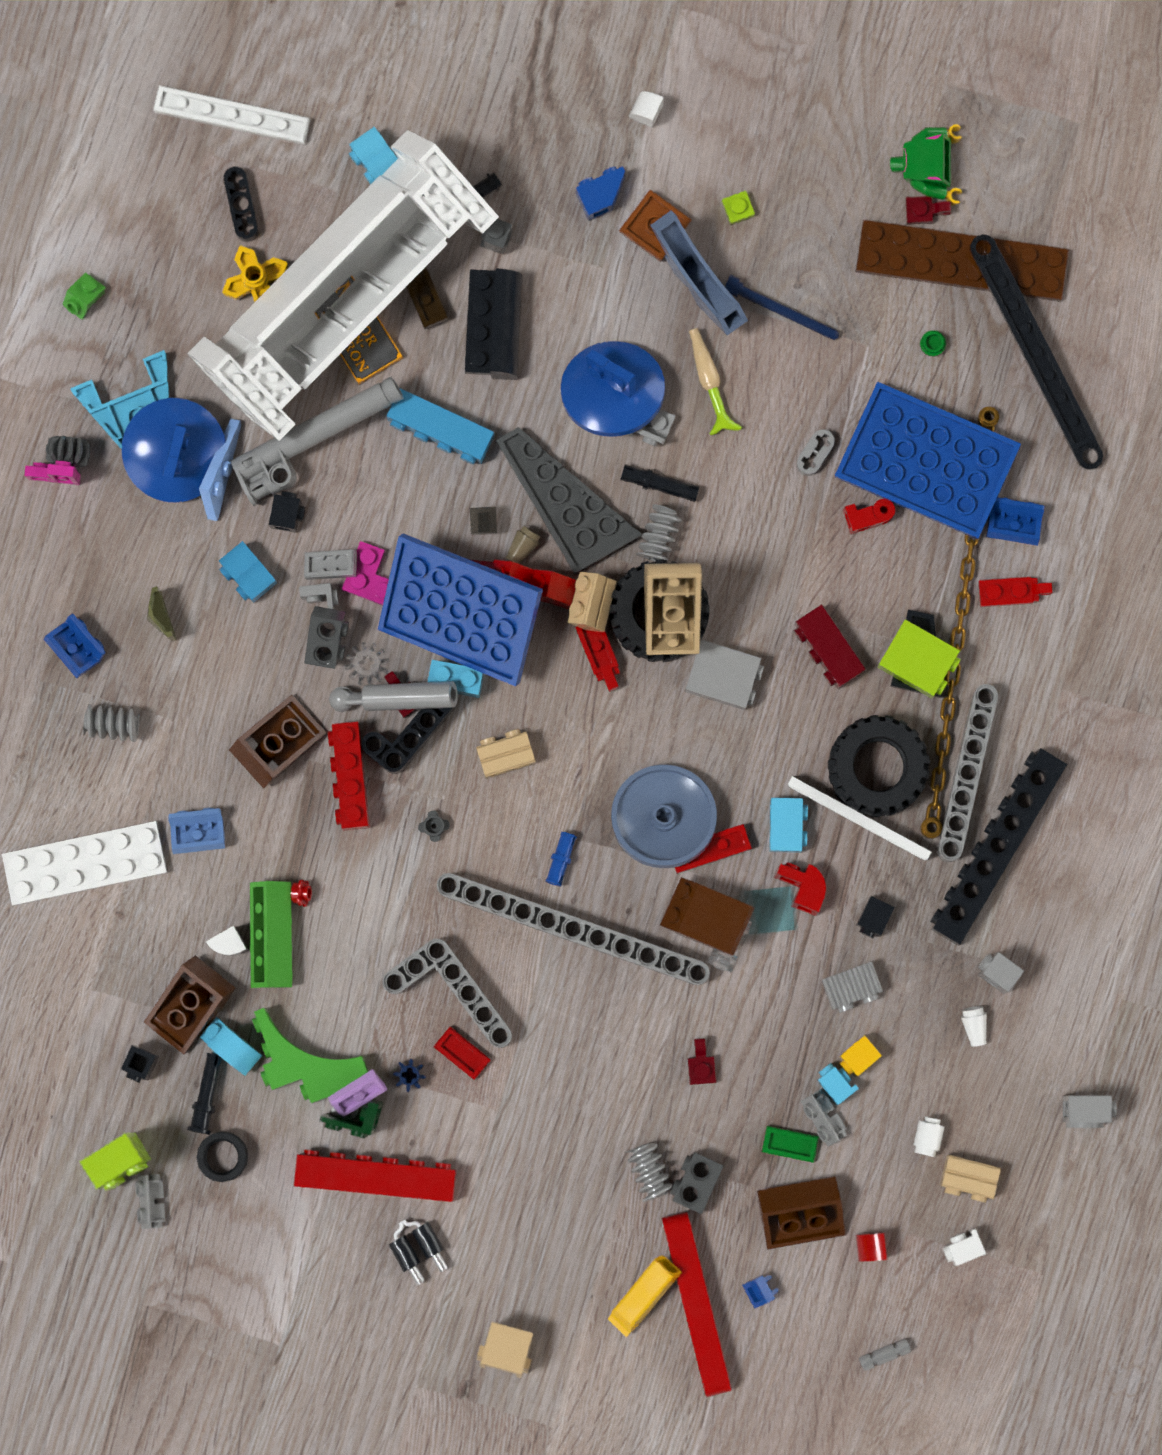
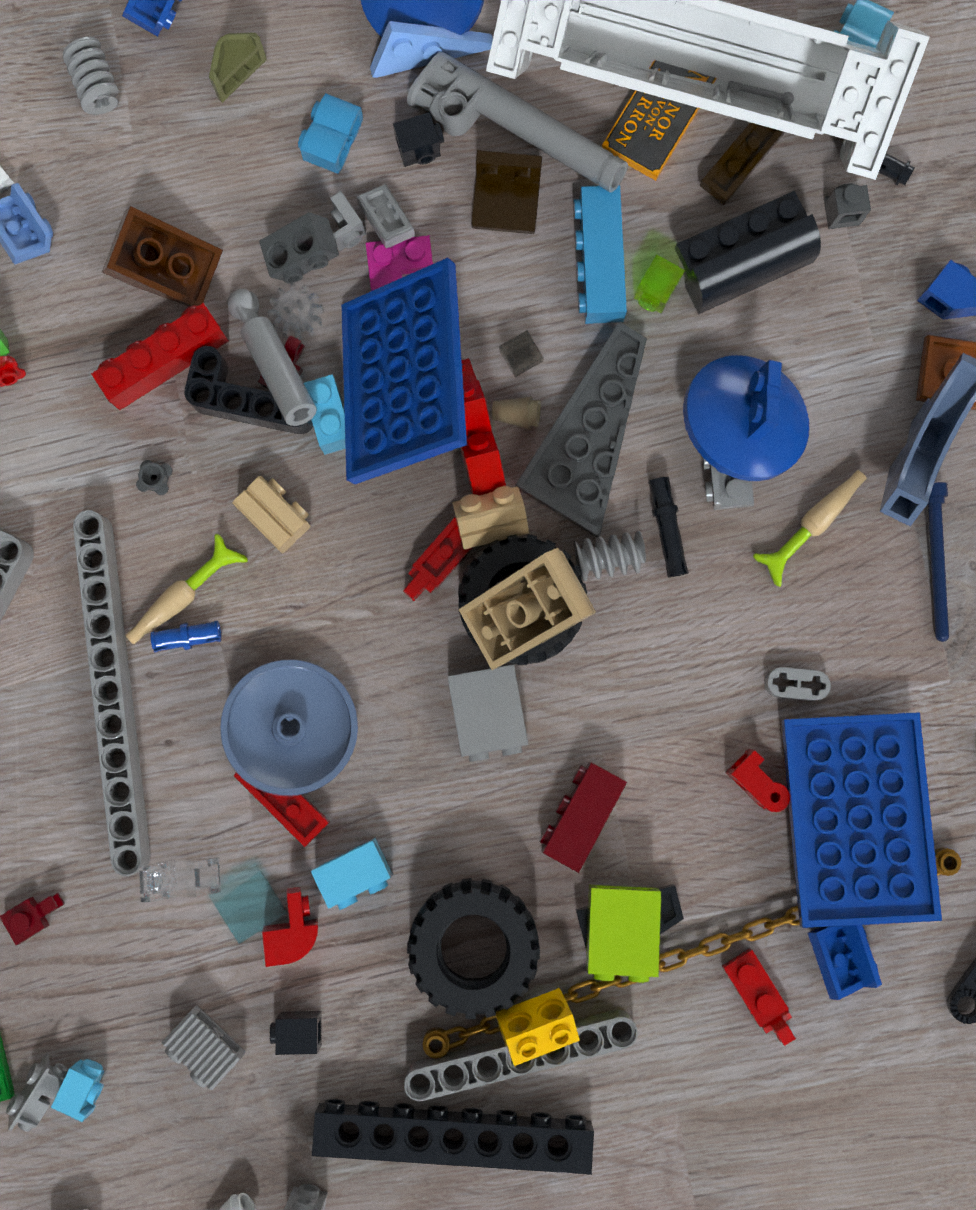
camera: 60 degrees right, 0 degrees up
(360, 471) = (506, 192): none -> dark brown bracket
(395, 234) = (786, 98): none -> light grey hinge
(484, 398) = (658, 284): none -> clear neon green brick
(528, 846) = (182, 592): none -> tan piece
(707, 916) = (193, 839): reddish brown slope -> none
(859, 818) = (401, 970): white tile -> none
(859, 1056) = (125, 1099): yellow brick -> none
(951, 748) = (537, 1026): none -> yellow brick

